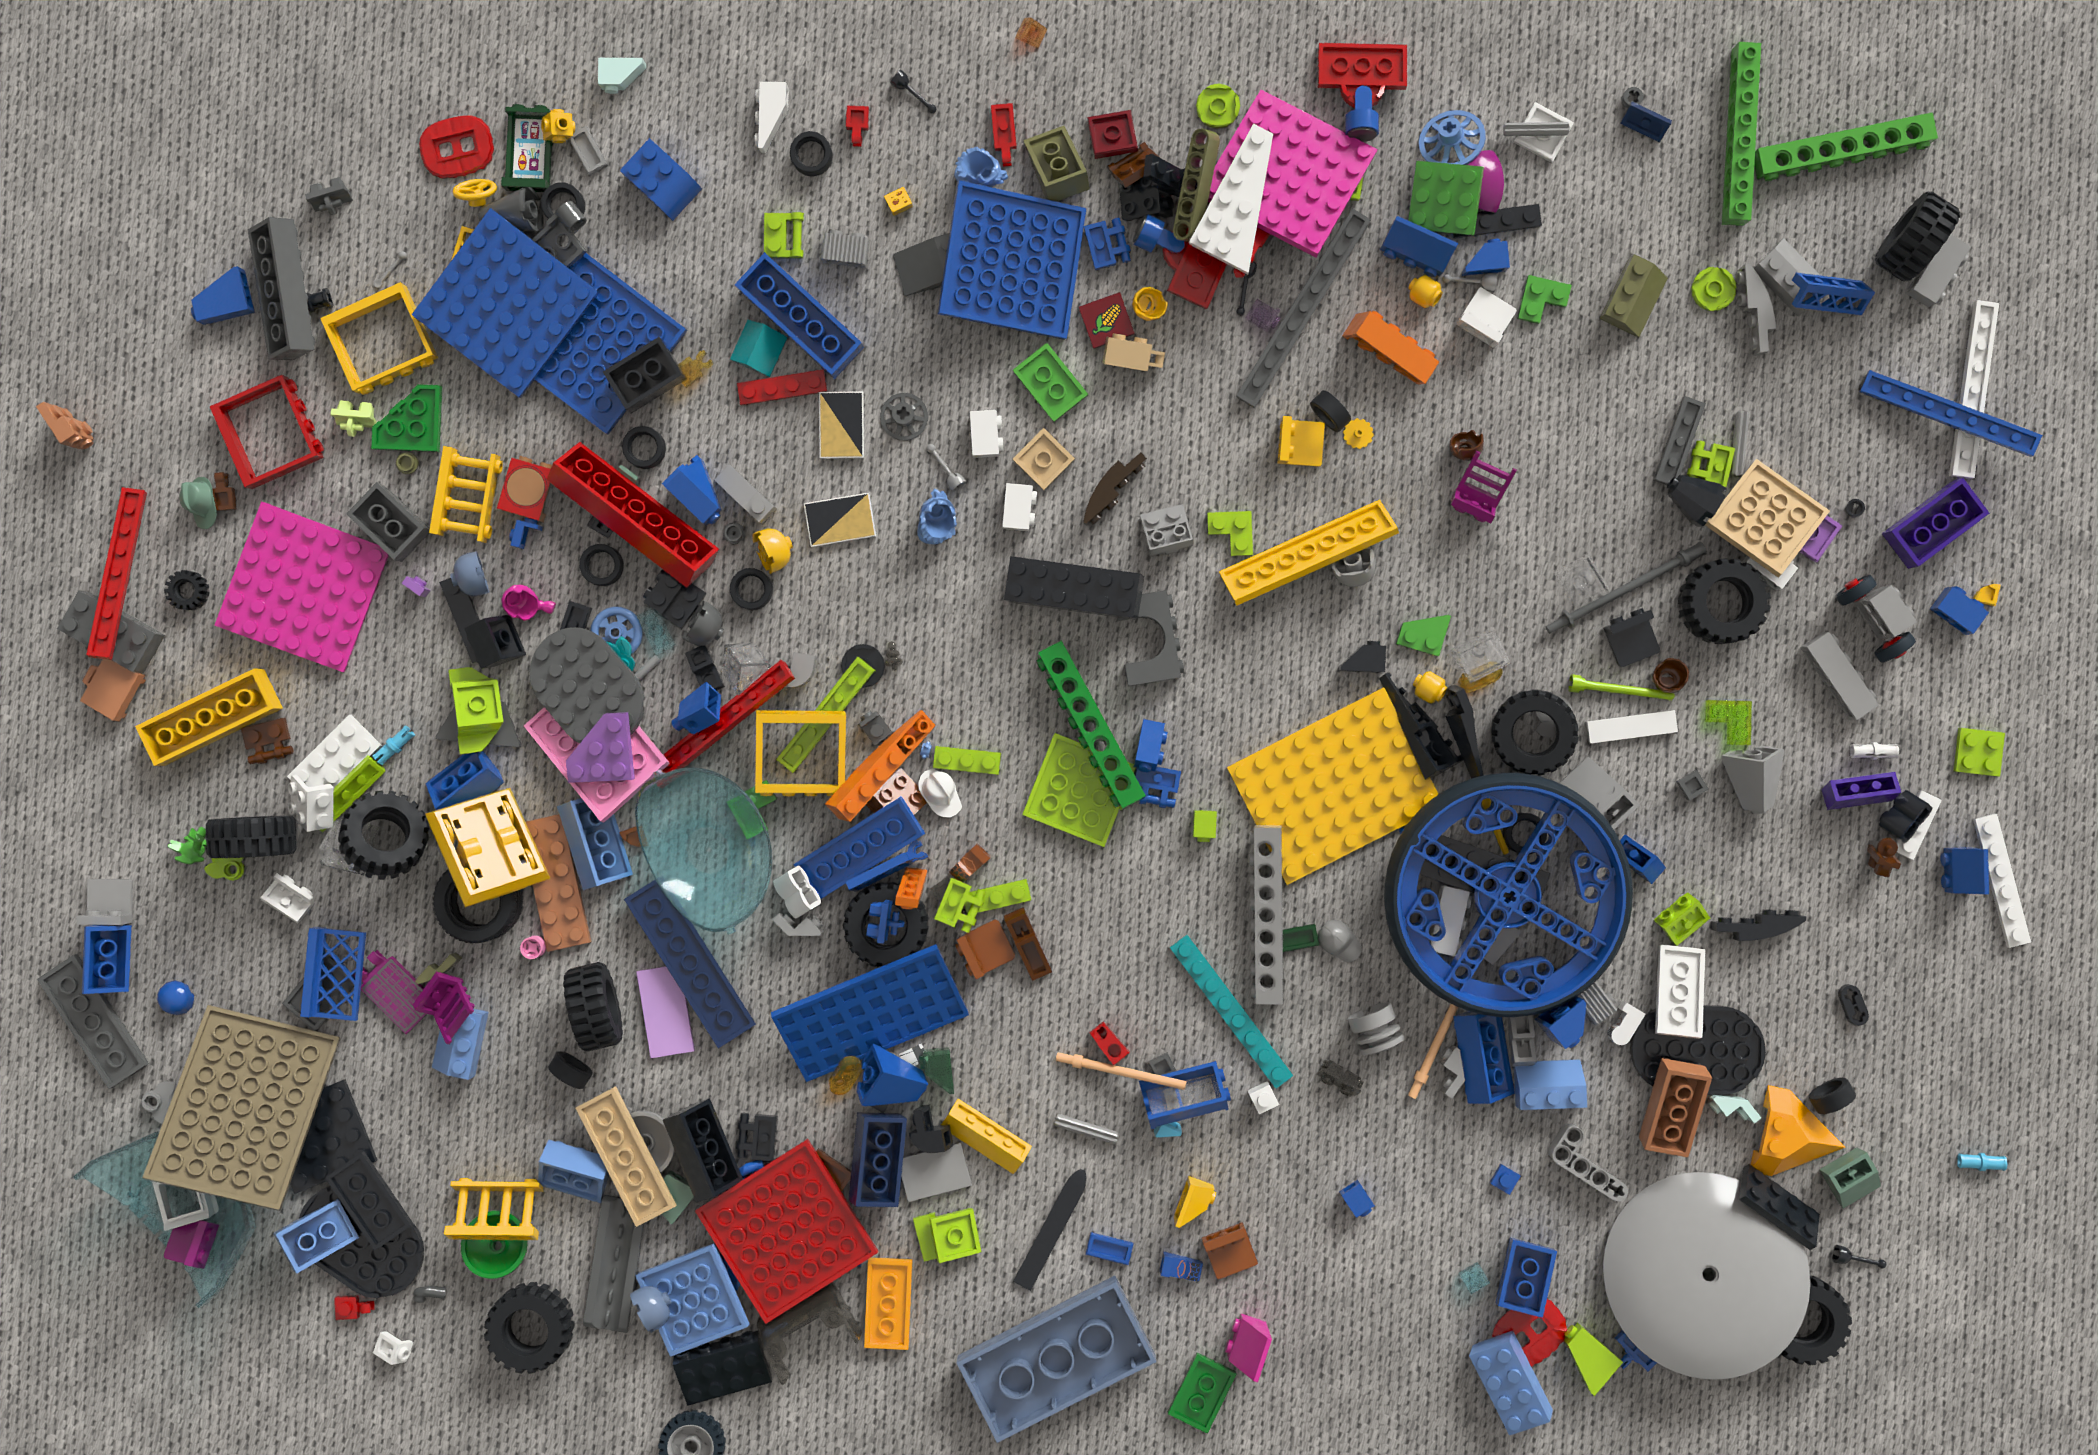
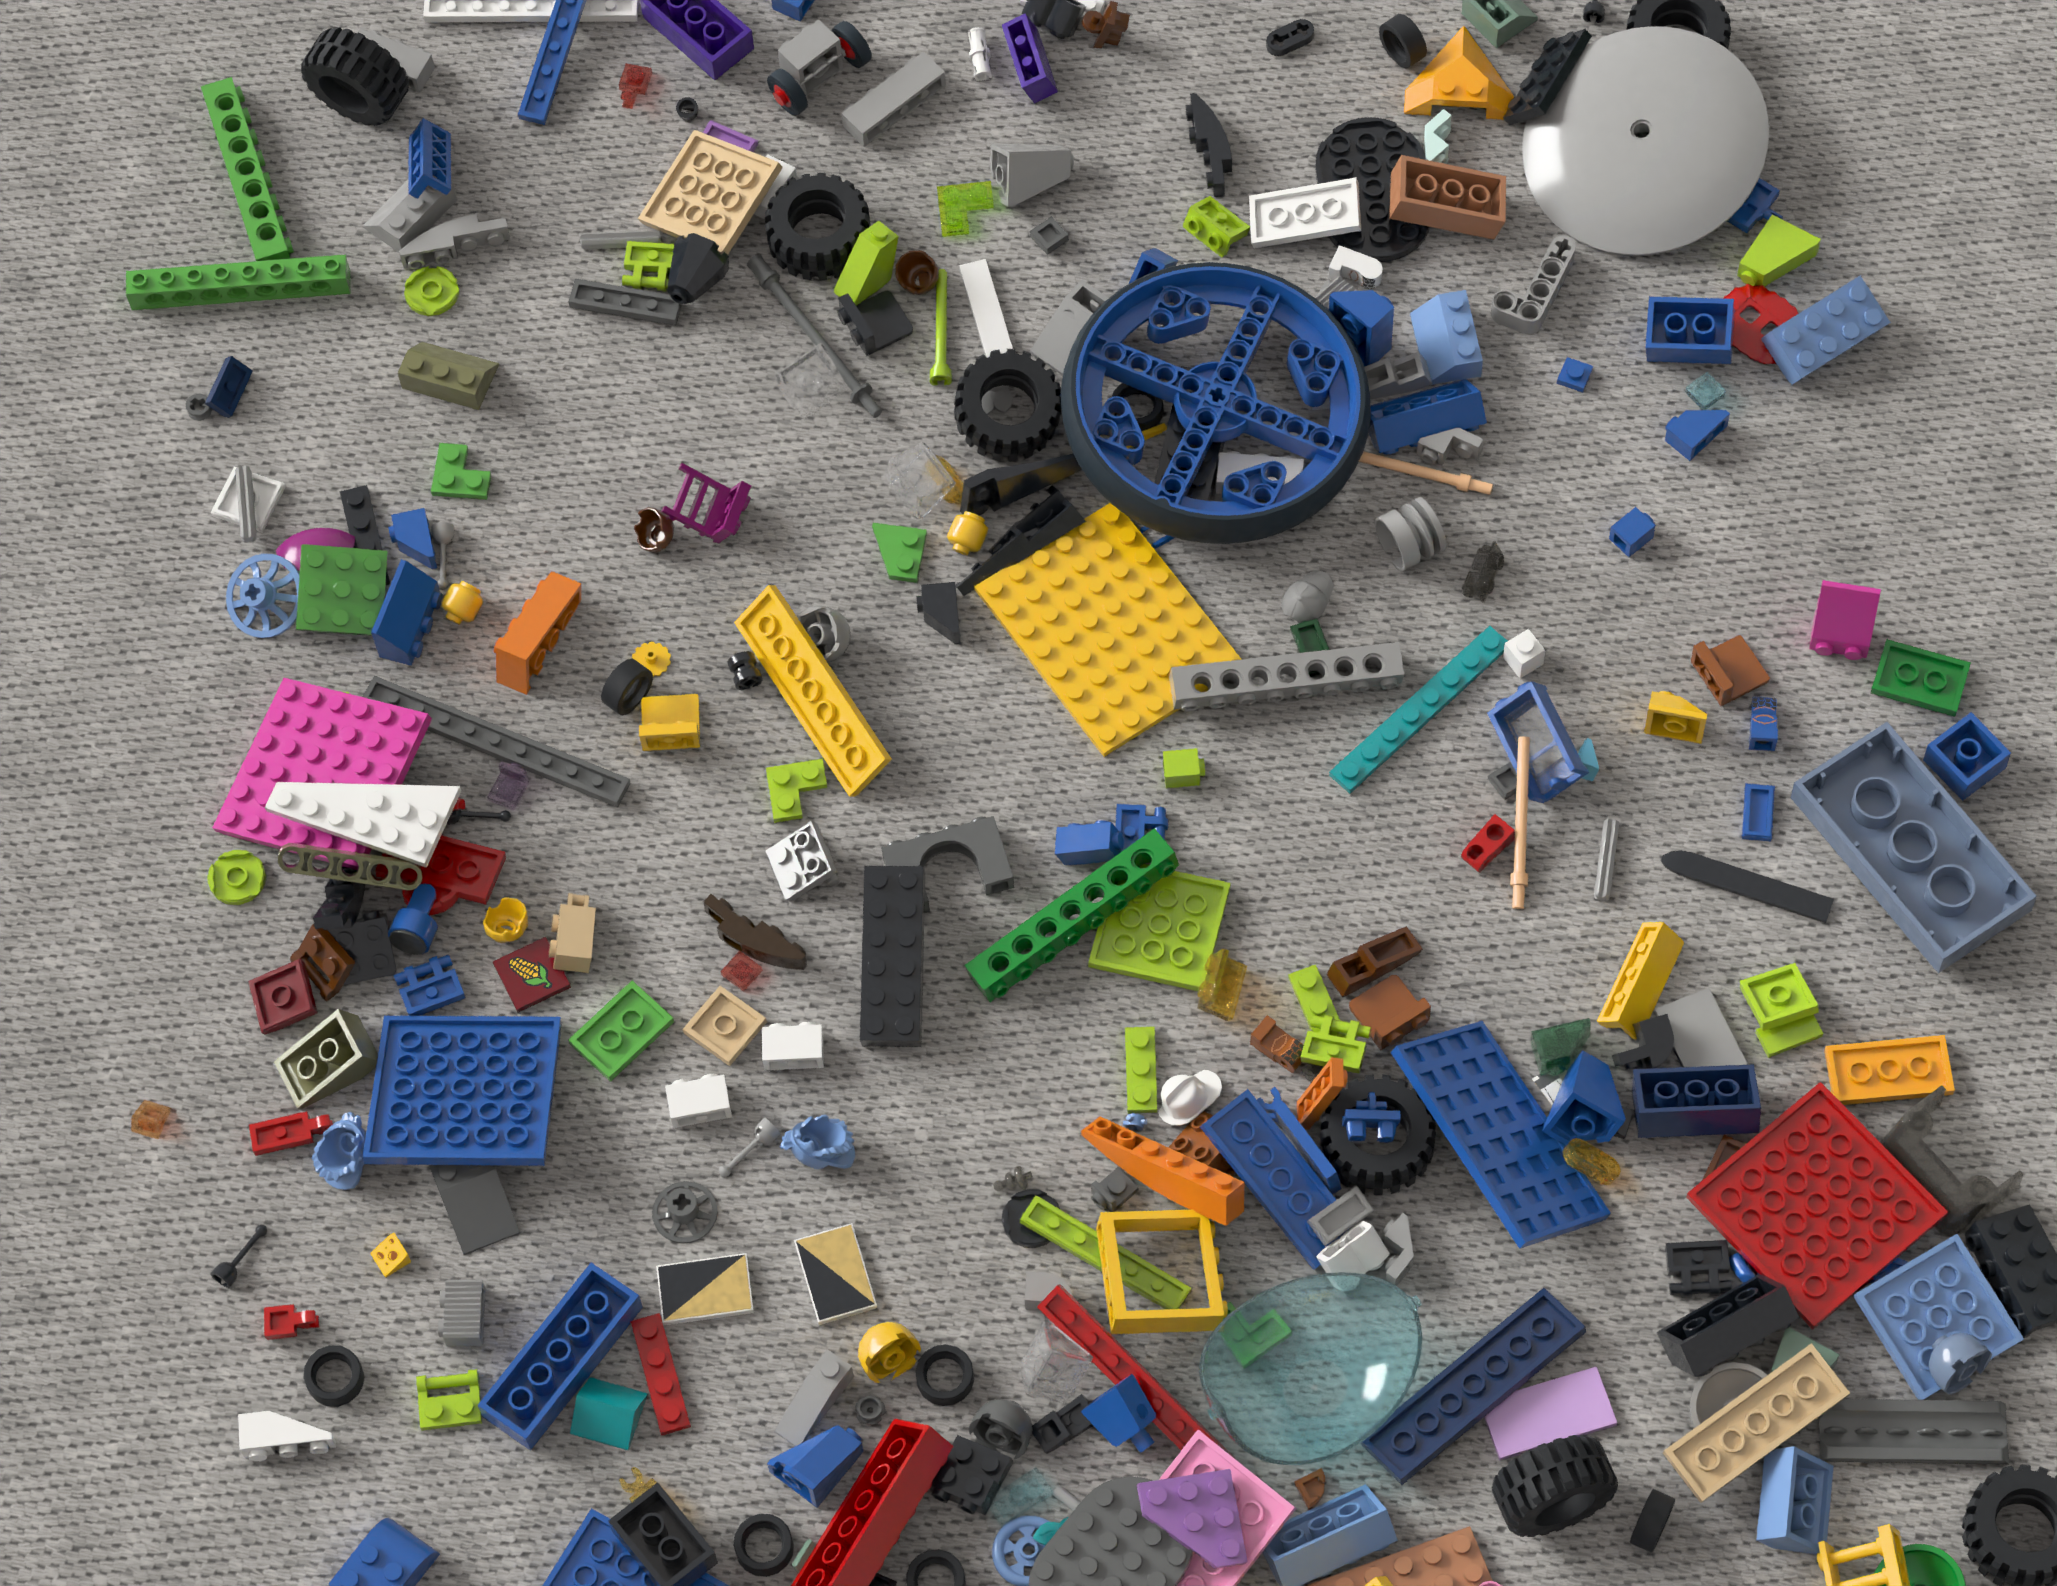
camera: 85 degrees left, 25 degrees down
(826, 887) = (1340, 1215): none -> light grey tile
(1021, 828) = (1222, 985): none -> clear yellow bracket
(1087, 476) = (741, 971): none -> clear red tile
(1127, 1414) = (1966, 756): none -> blue brick
(1335, 503) = (745, 670): none -> black wheel
(1362, 76) = (188, 707): red plate -> none
(1439, 1262) = (1695, 430): none -> blue slope
(1486, 317) = (489, 530): white bracket -> none
(1678, 636) = (869, 263): none -> lime slope
(1889, 467) = (633, 82): none -> clear red plate

